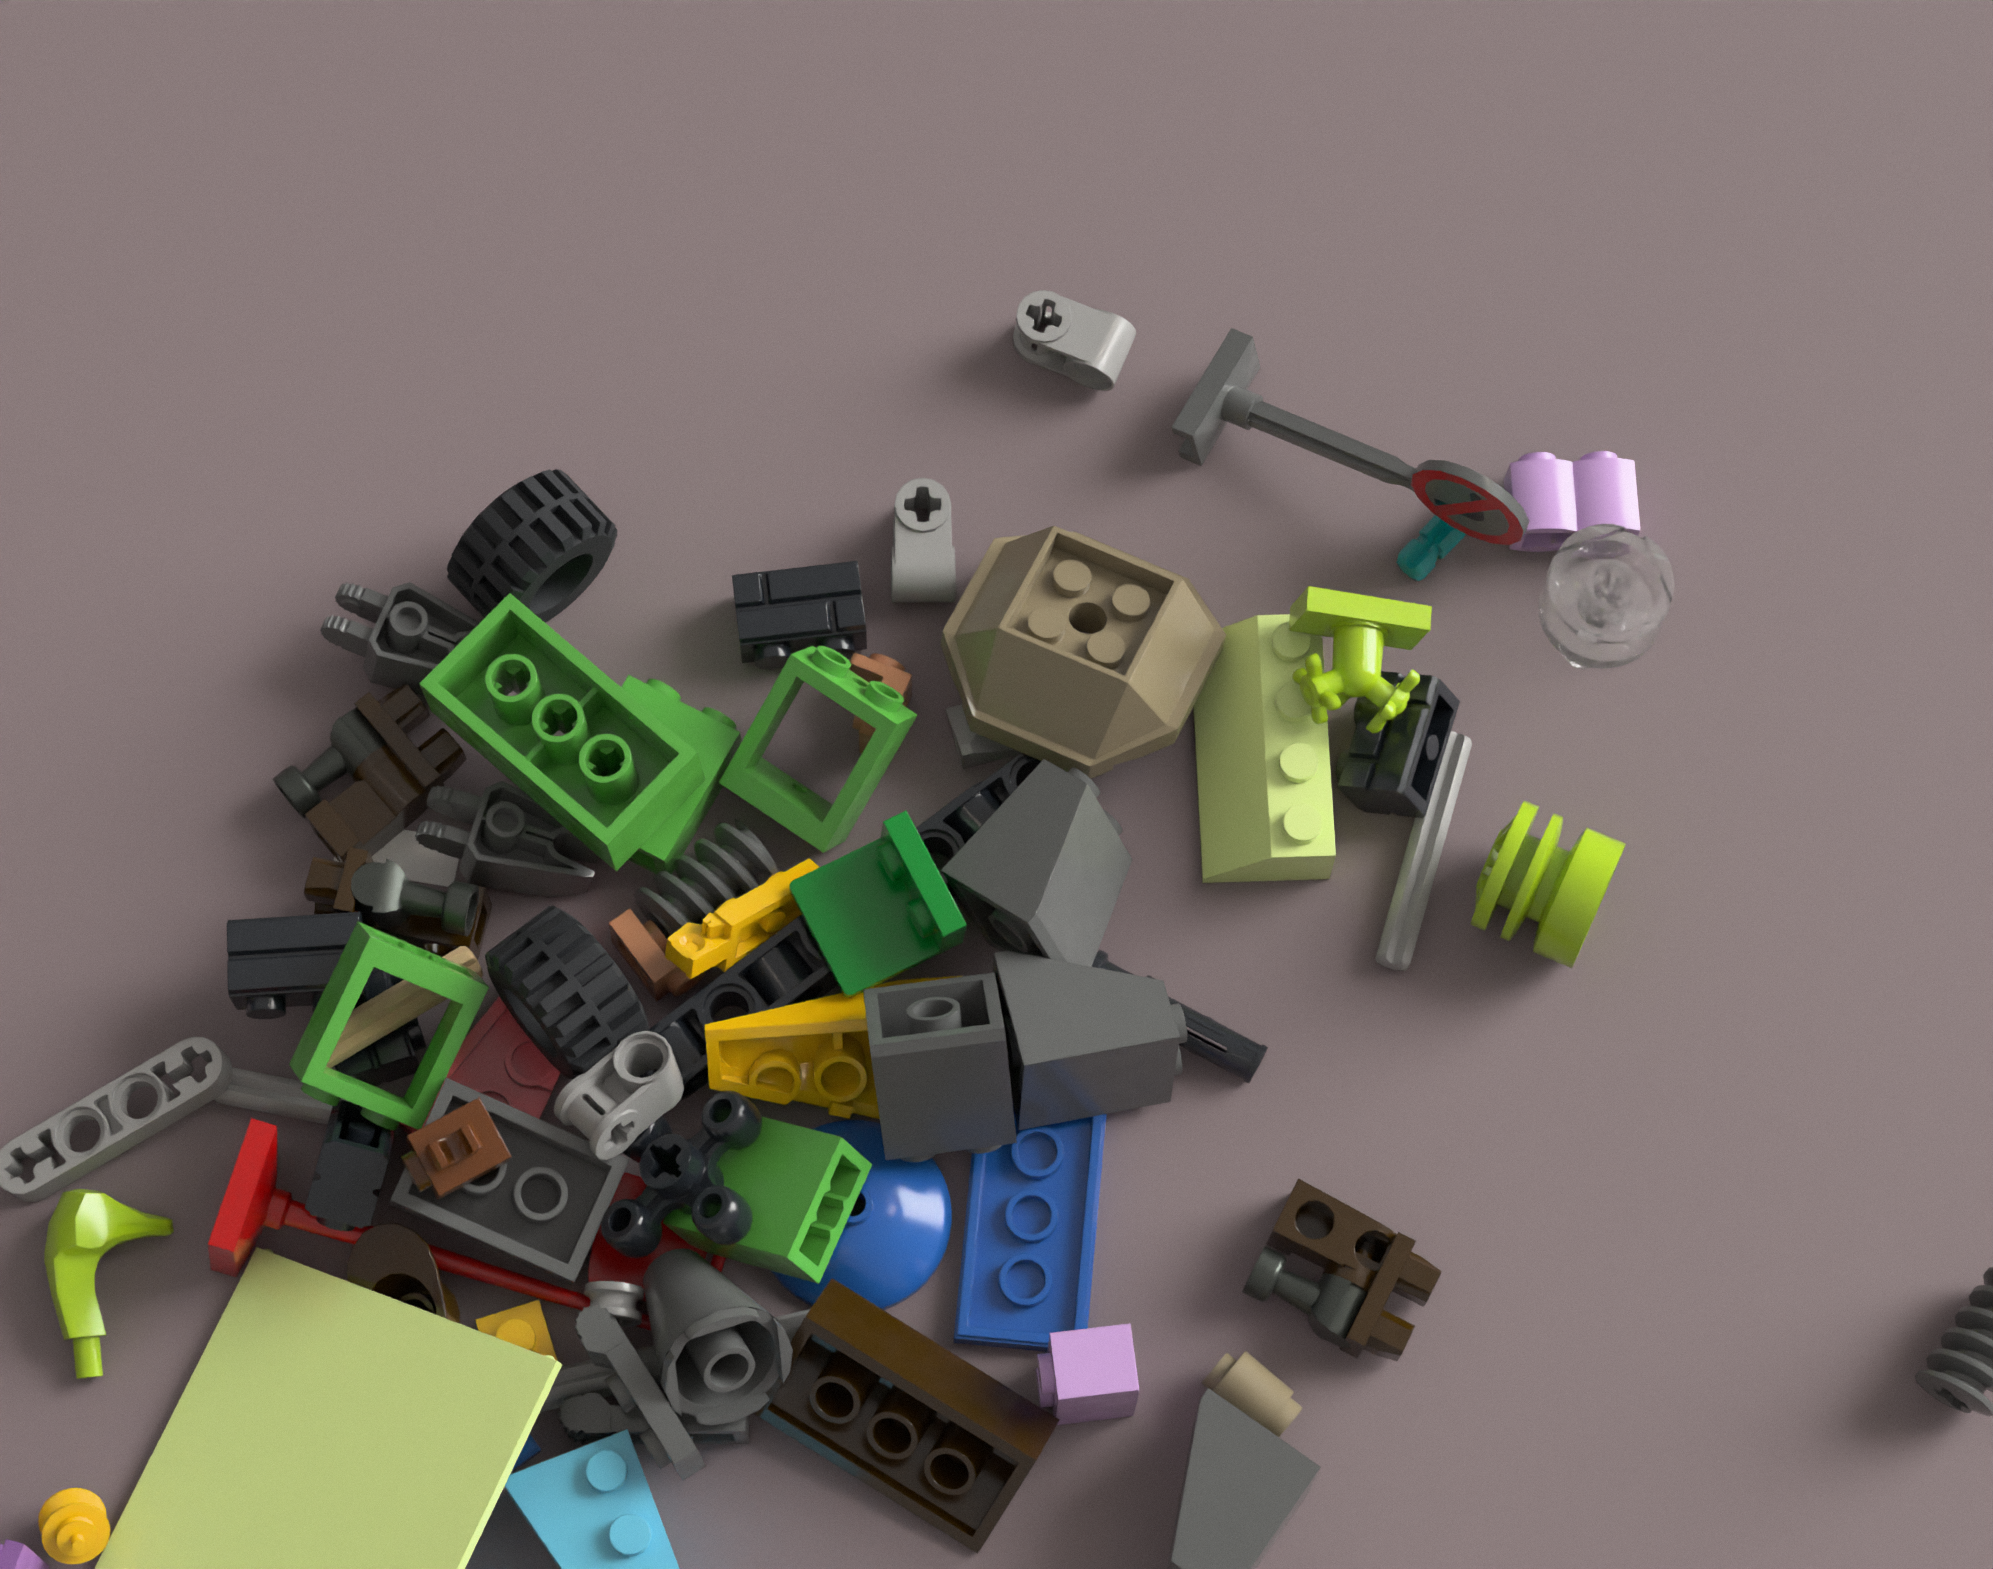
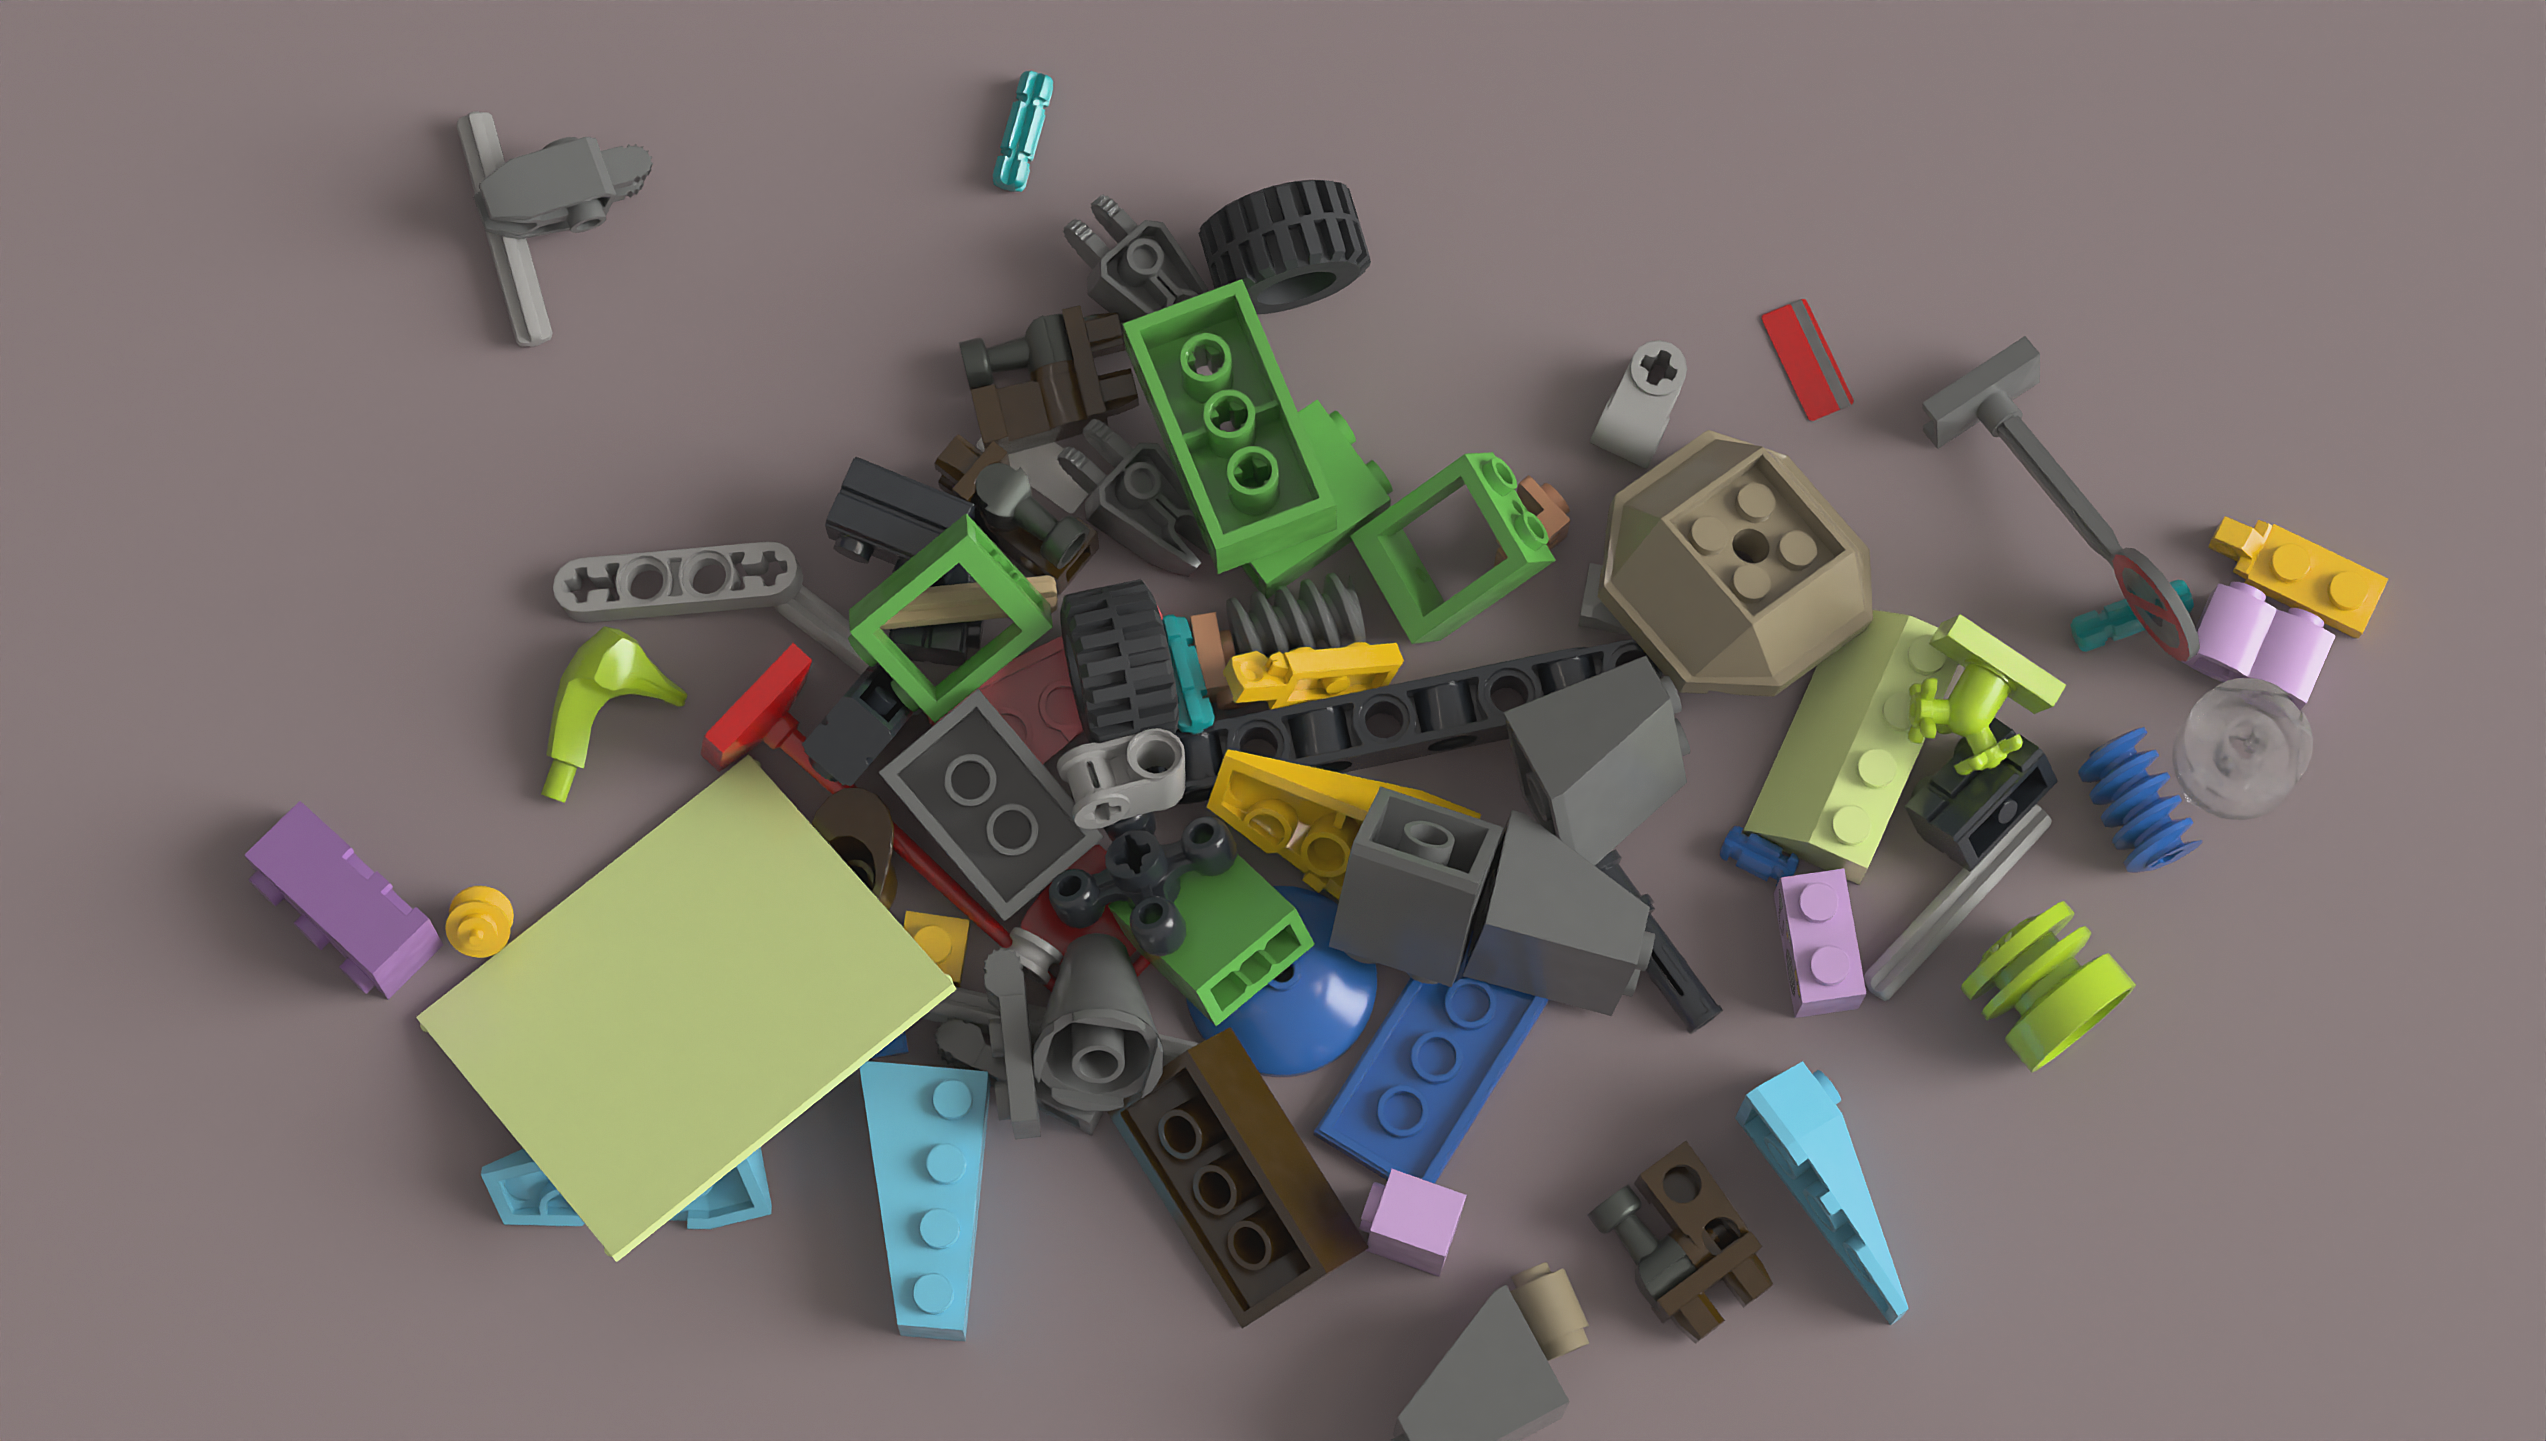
camera: 25 degrees right, 5 degrees up
(239, 565) = (1022, 131): none -> teal axle
(455, 1150) = (953, 757): reddish brown brick -> none
(657, 1004) = (1194, 710): none -> teal axle
(797, 610) = (1499, 413): black brick -> none
(879, 908) = (1431, 720): green bracket -> none
(1047, 442) = (1807, 359): none -> red sticker
(1076, 343) = (1882, 283): light grey piece -> none
(1229, 895) = (1758, 855): none -> blue piece
(1324, 945) = (1819, 943): none -> lavender brick
(1417, 1138) = (1810, 1149): none -> medium azure wedge
(1538, 688) = (2136, 803): none -> blue piece
(1572, 424) = (2301, 573): none -> yellow hinge

